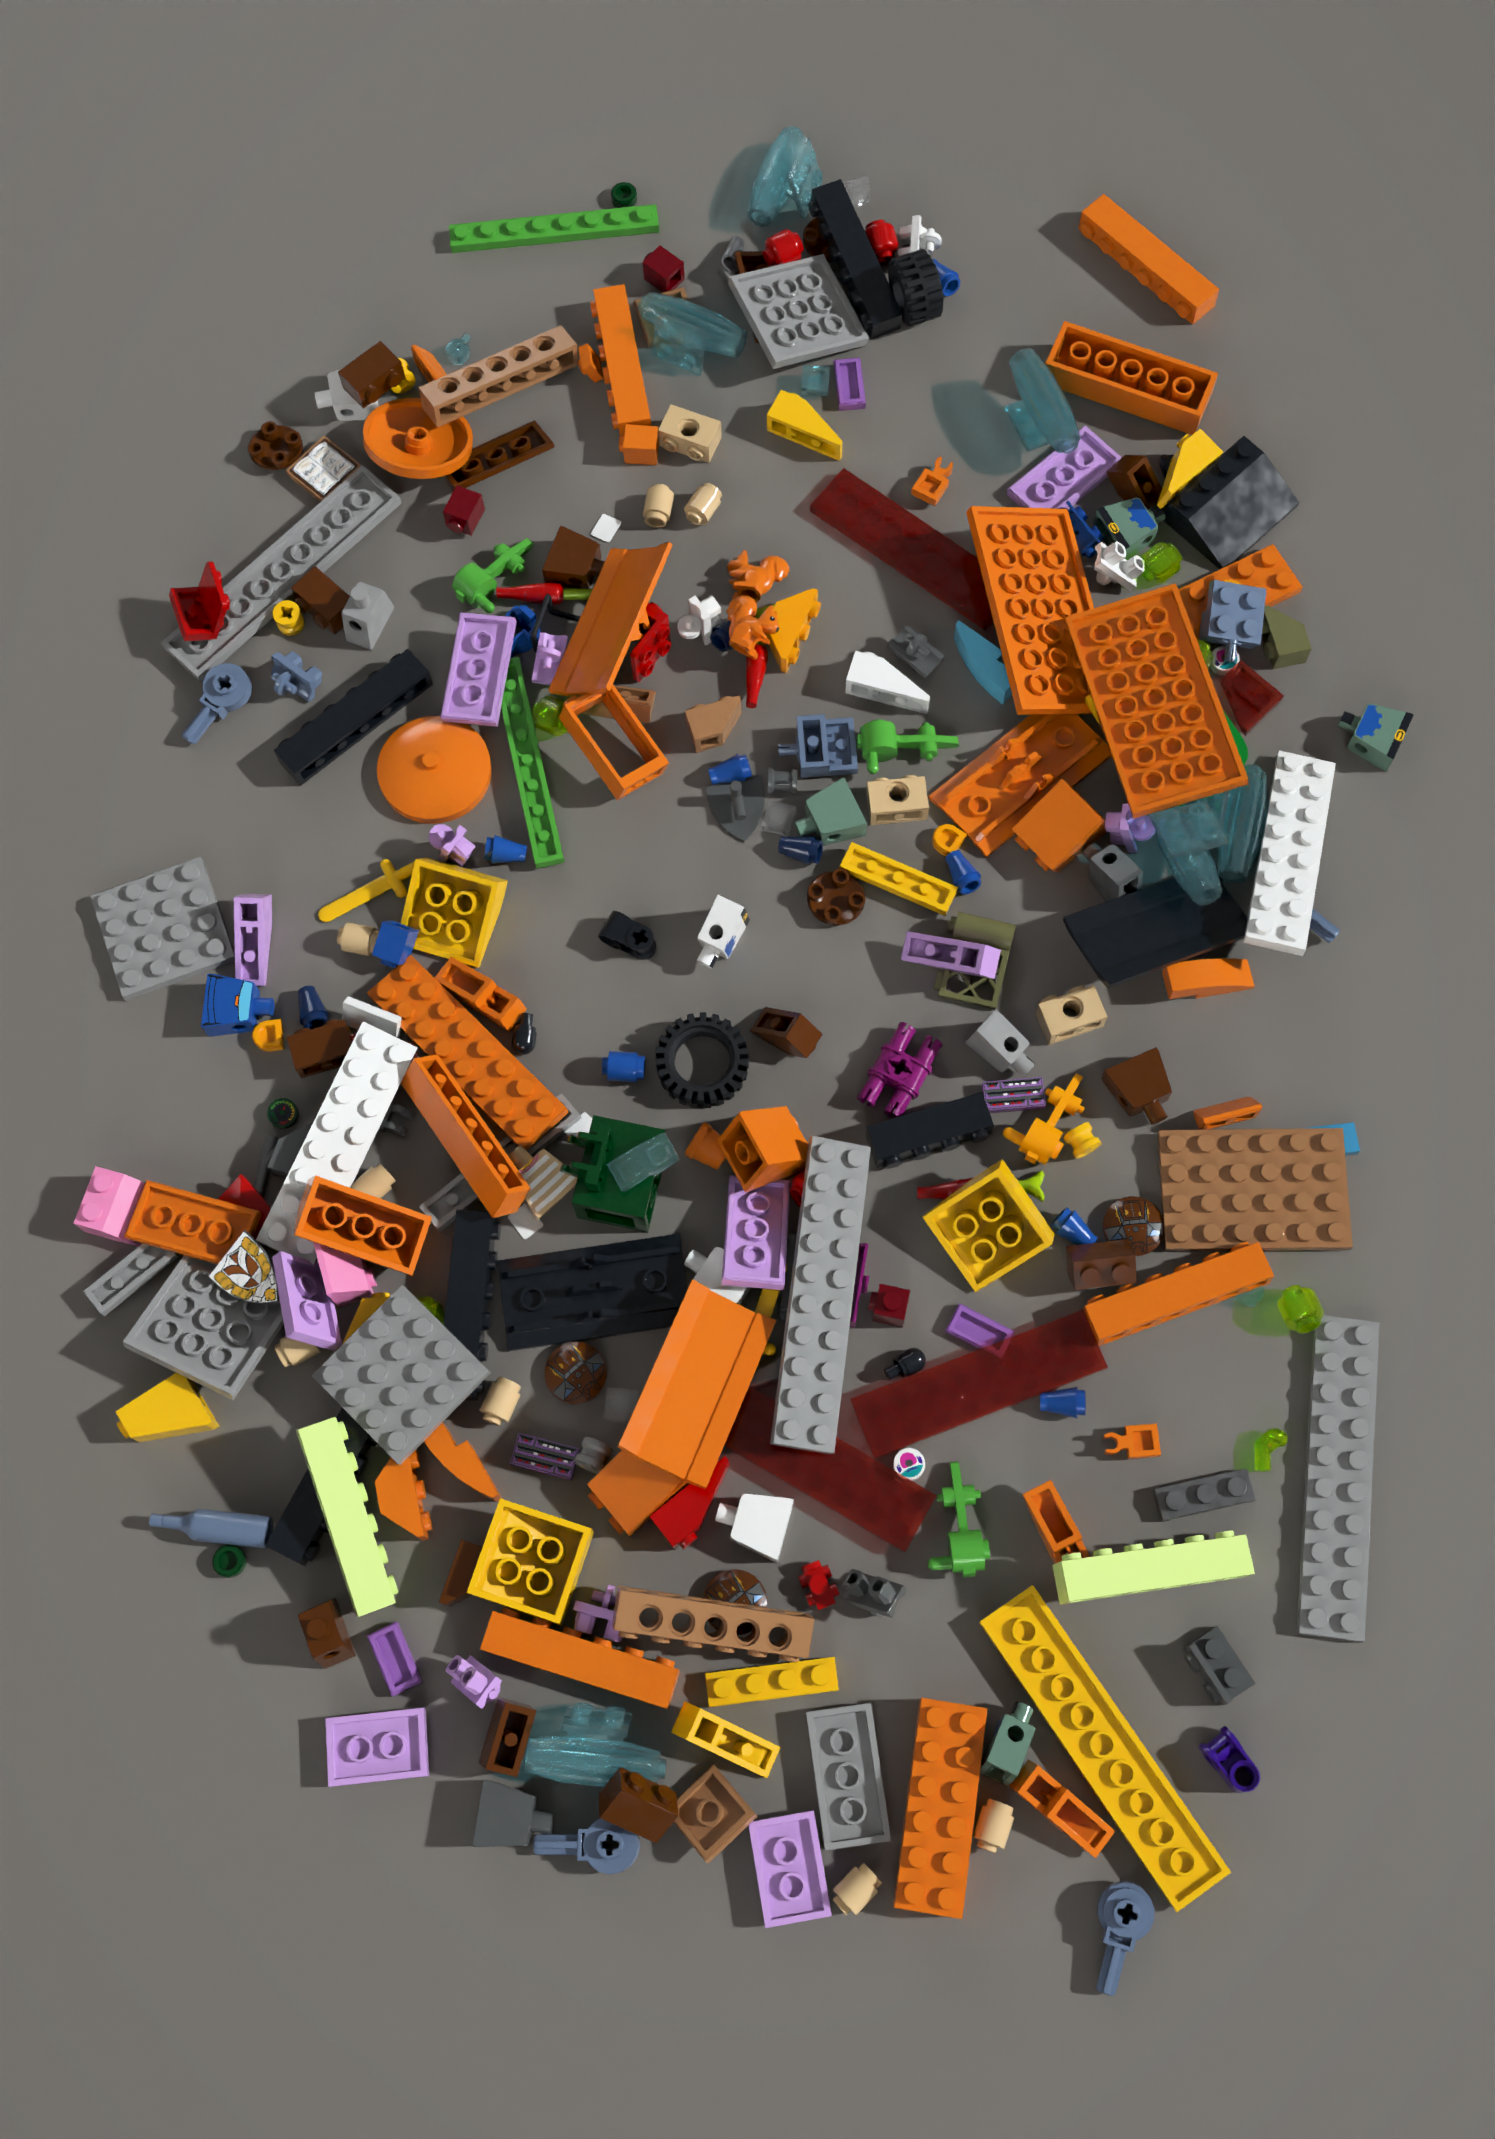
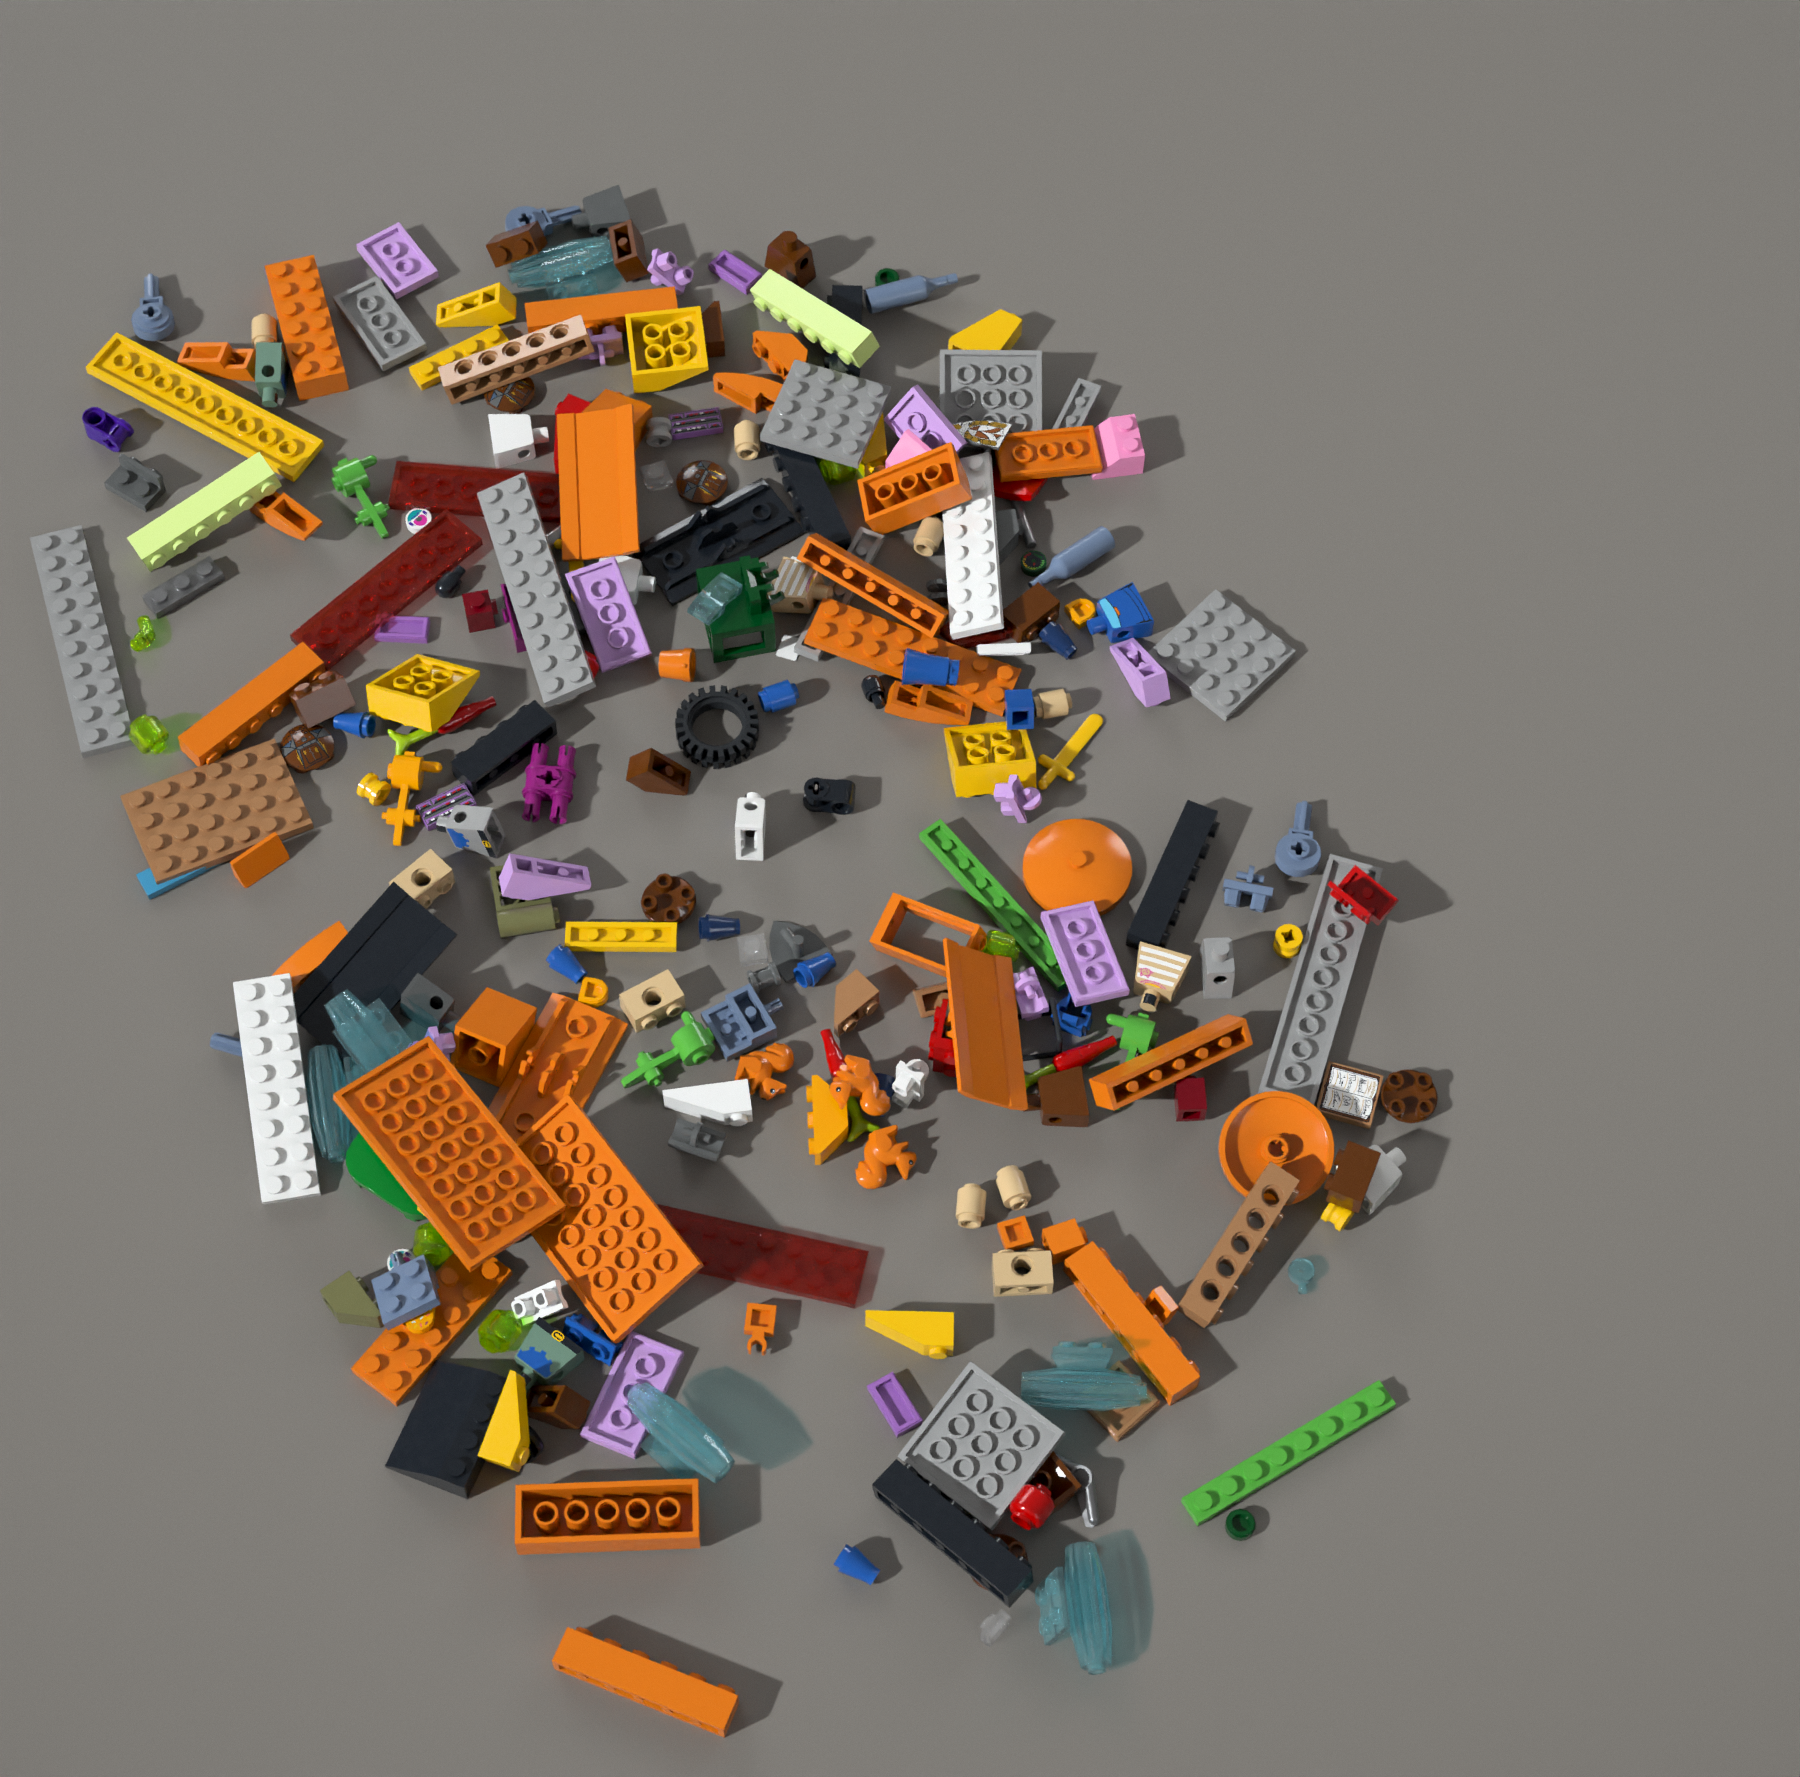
camera: 150 degrees right, 10 degrees down
(237, 1093) = (1077, 556): none -> sand blue piece
(321, 599) = (1265, 967): reddish brown brick -> none
(377, 1747) = (717, 219): lavender plate -> none
(423, 631) = (1158, 975): none -> tan torso
(427, 364) = (1309, 1235): orange slope -> none
(462, 535) = (1170, 1062): none -> orange brick
(464, 1007) = (929, 669): none -> blue plant
(501, 455) = (1188, 1175): reddish brown slope -> none
(503, 850) = (974, 822): blue cone -> none
(606, 528) = (1053, 1155): white sticker -> none
(663, 269) = (1147, 1443): dark red brick -> none
(677, 469) = (1015, 1233): none -> orange plate
(712, 1814) = (465, 266): medium nougat tile -> none
(764, 1146) = (627, 671): orange slope -> none
(815, 380) = (928, 1387): clear light blue plate -> none
(816, 1578) = (451, 421): red piece -> none
(829, 697) = (759, 1067): none -> orange animal
(832, 815) = (703, 964): sand green torso -> none
(856, 1889) = (345, 265): tan brick -> none
(872, 1593) = (408, 424): dark grey hips -> none
(882, 239) = (940, 1576): red head -> none
(916, 287) = (871, 1514): black tyre -> none
(918, 238) = (896, 1593): white hips -> none
(983, 661) = (640, 1163): medium azure slope -> none
(1065, 1402) = (312, 602): blue cone -> none
(1138, 1441) = (248, 599): orange plate -> none
(1140, 1085) = (341, 850): reddish brown torso -> none
(1249, 696) = (365, 1234): clear red wing -> none
(1376, 733) = (231, 1244): sand green torso -> none

